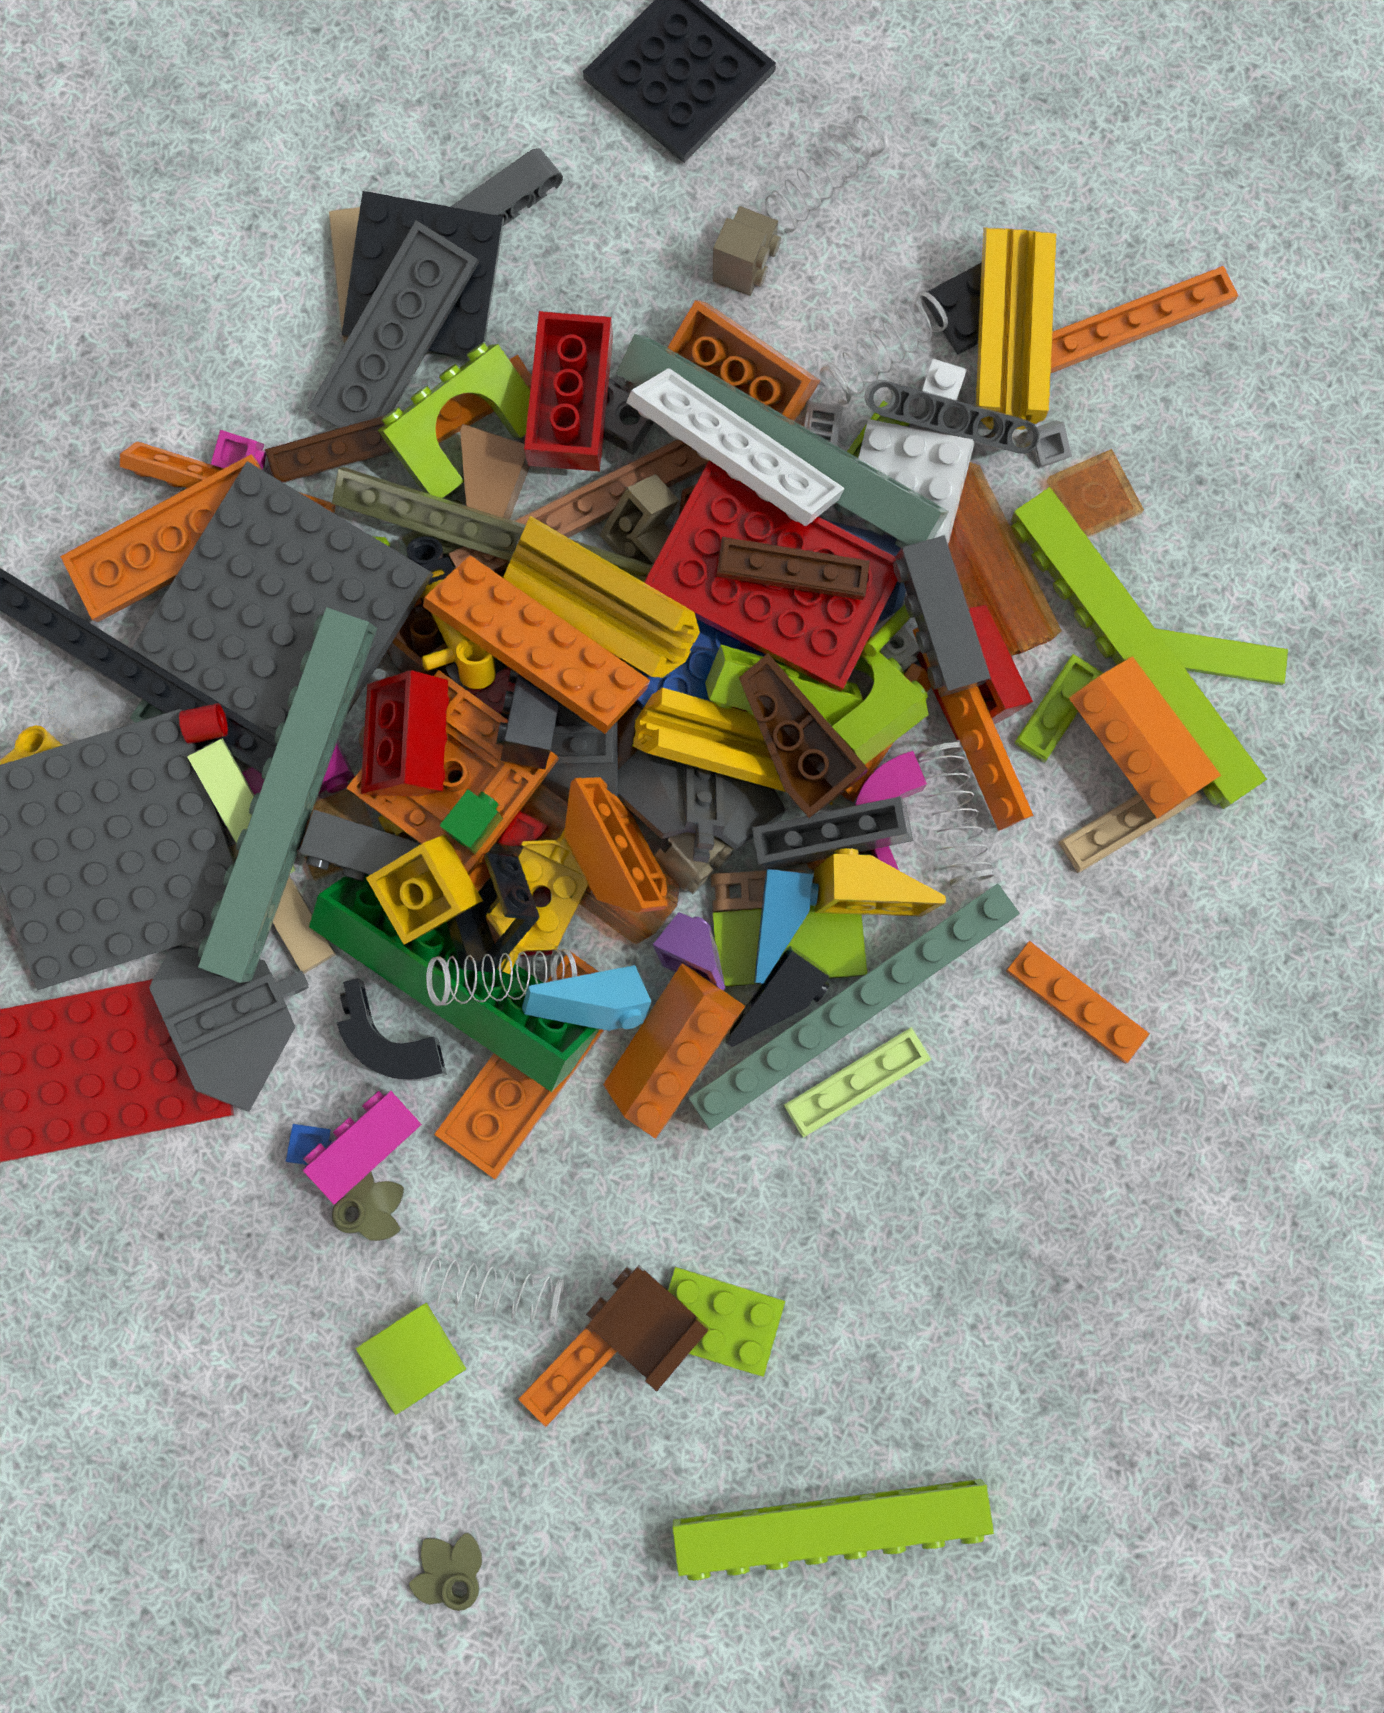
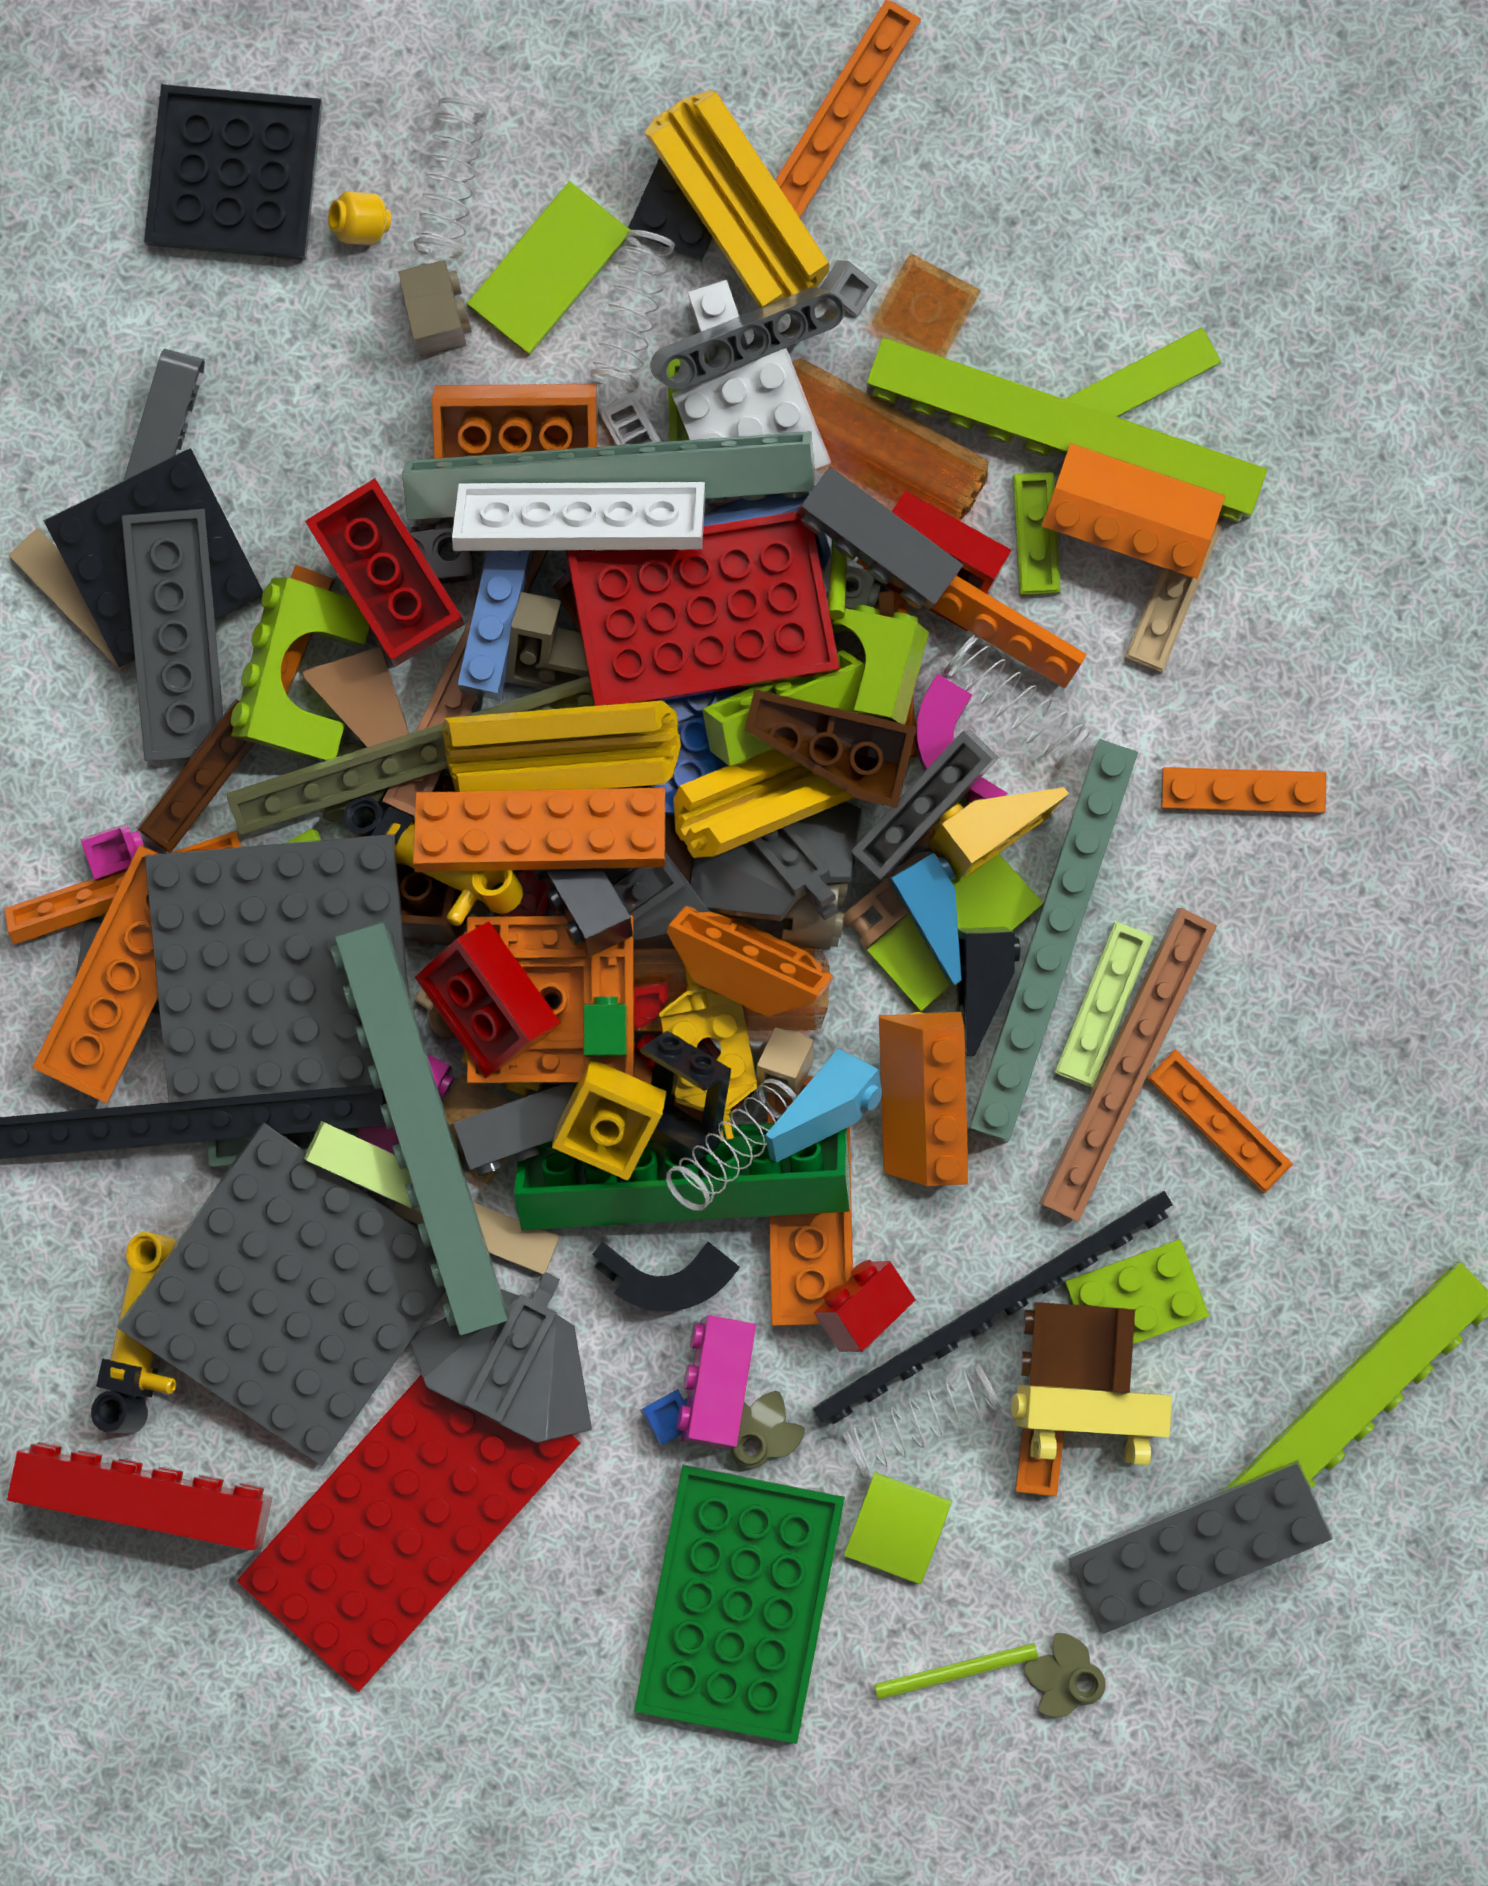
camera: 35 degrees left, 5 degrees up
(203, 723) = (295, 1120): red beam -> none
(251, 1326) = (739, 1604): none -> green plate
(371, 1502) = (956, 1671): none -> lime bar
(510, 1171) = (864, 1305): none -> red brick
(588, 1246) = (978, 1318): none -> black plate
(592, 947) = (786, 1059): none -> tan brick
(595, 500) = (487, 644): none -> medium blue brick
(619, 1383) = (1091, 1411): none -> light yellow brick
(625, 1554) = (1200, 1547): none -> dark grey plate
(691, 943) = (872, 992): medium lavender slope -> none
(741, 157) = (359, 218): none -> yellow head
(792, 568) = (715, 593): reddish brown tile -> none
(841, 1140) = (1128, 1064): none -> nougat plate
(847, 283) = (549, 268): none -> lime tile
(880, 1235) = (1219, 1121): none -> orange tile

